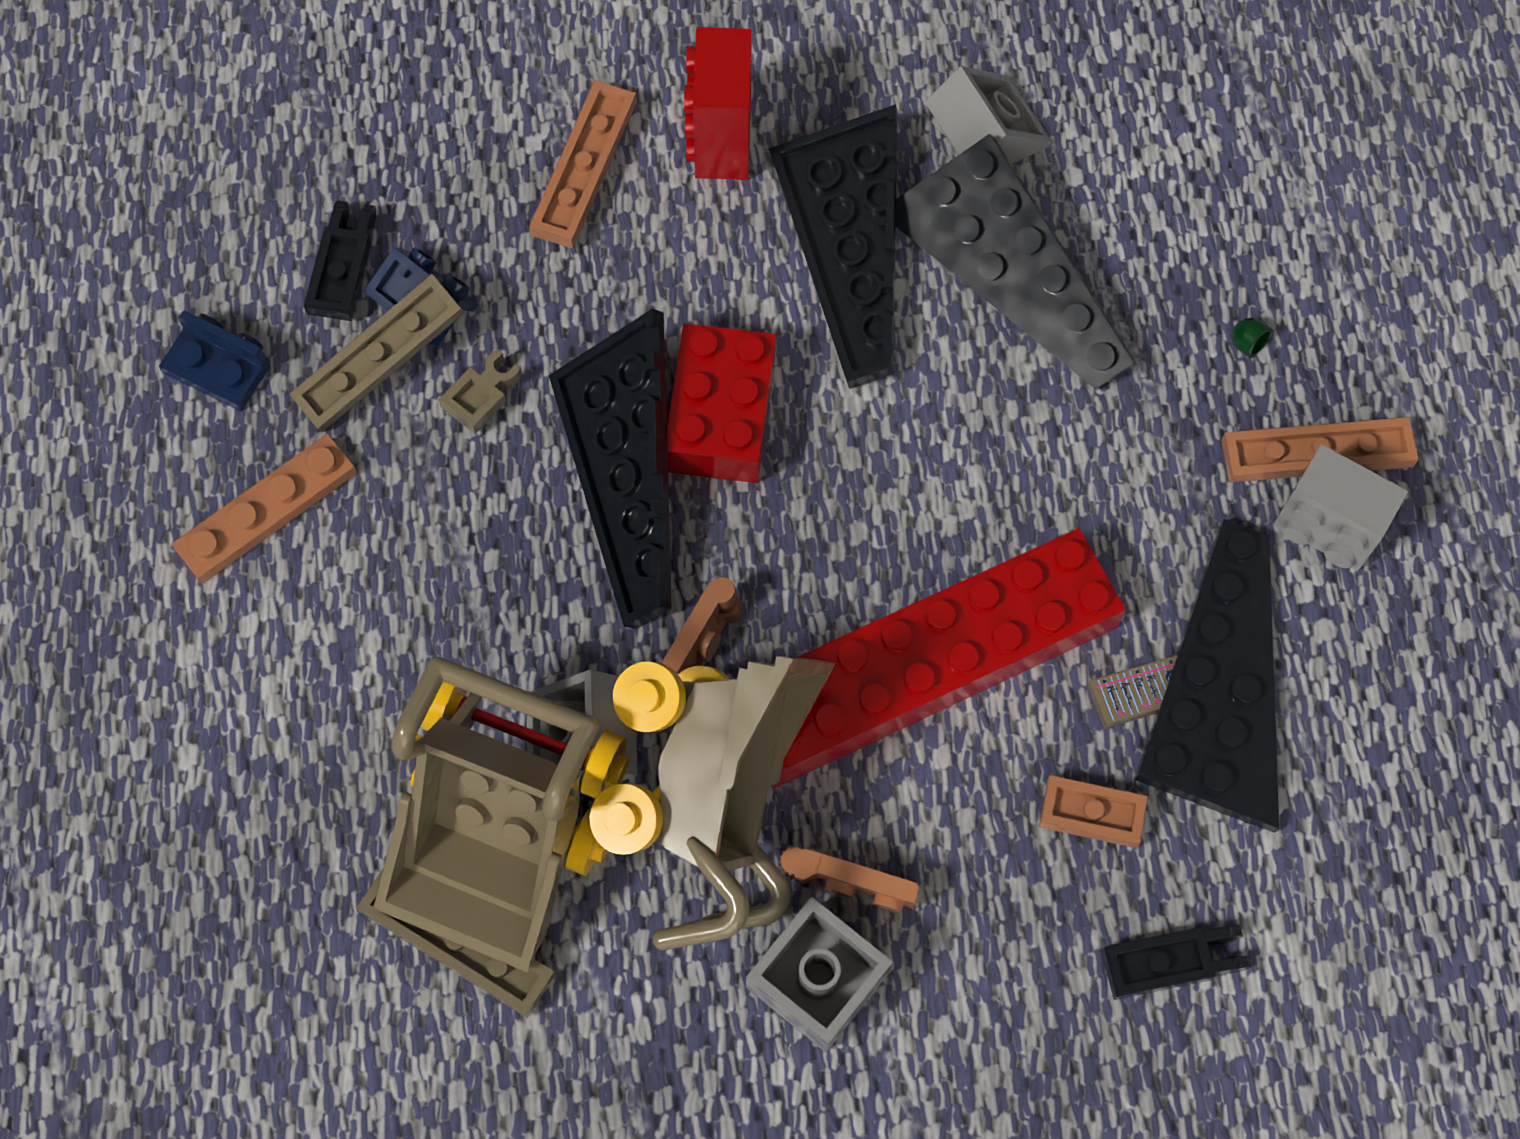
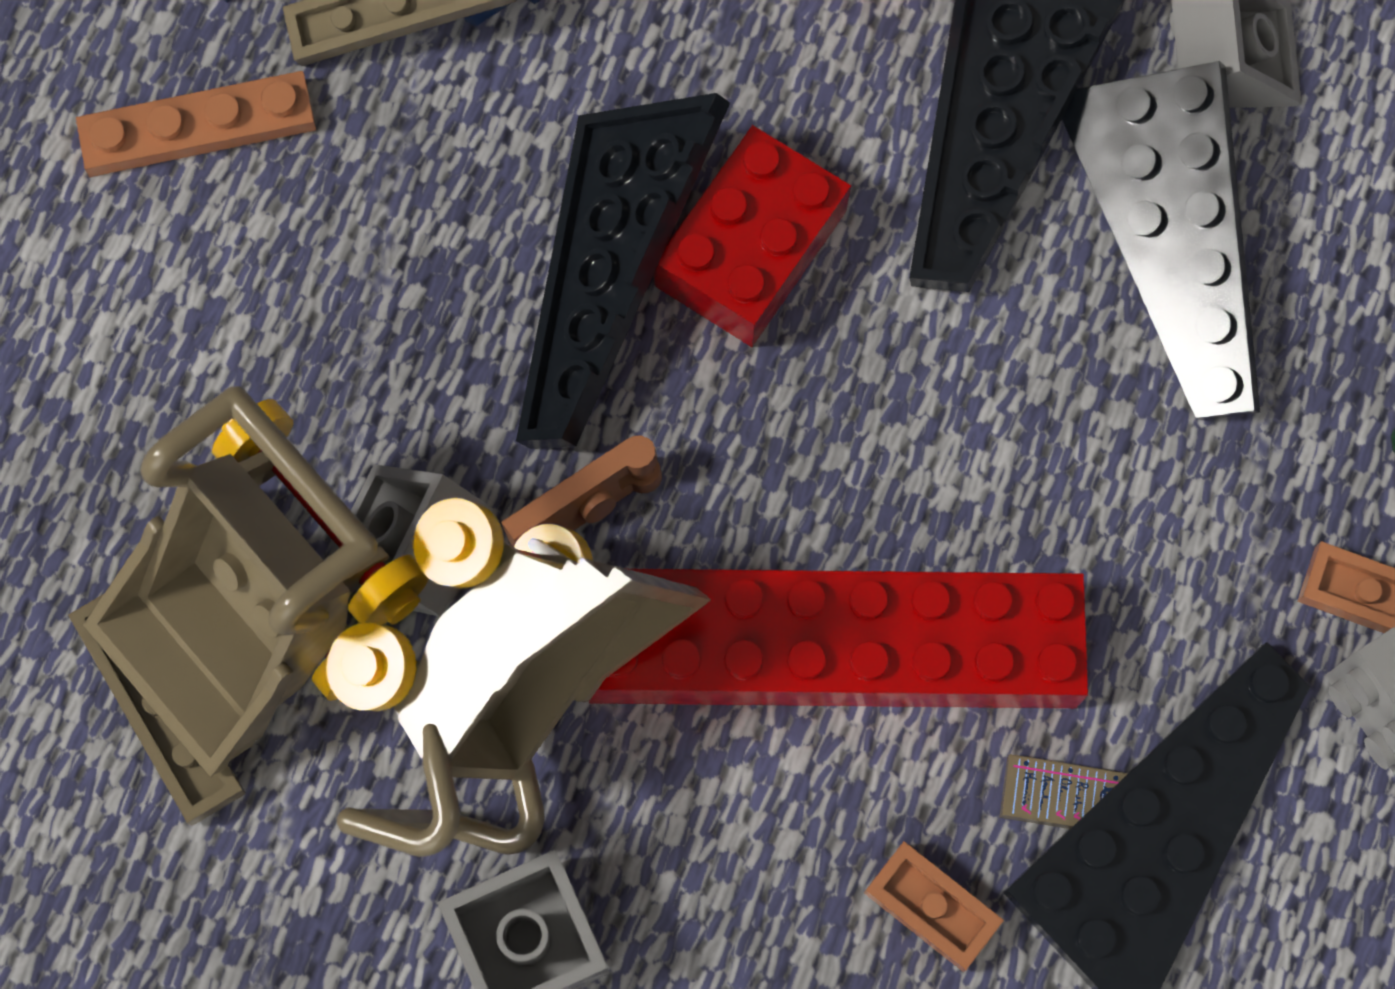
camera: 25 degrees right, 5 degrees up
(478, 396) = (487, 104): dark tan plate -> none
(847, 877) = (614, 845): nougat hinge -> none

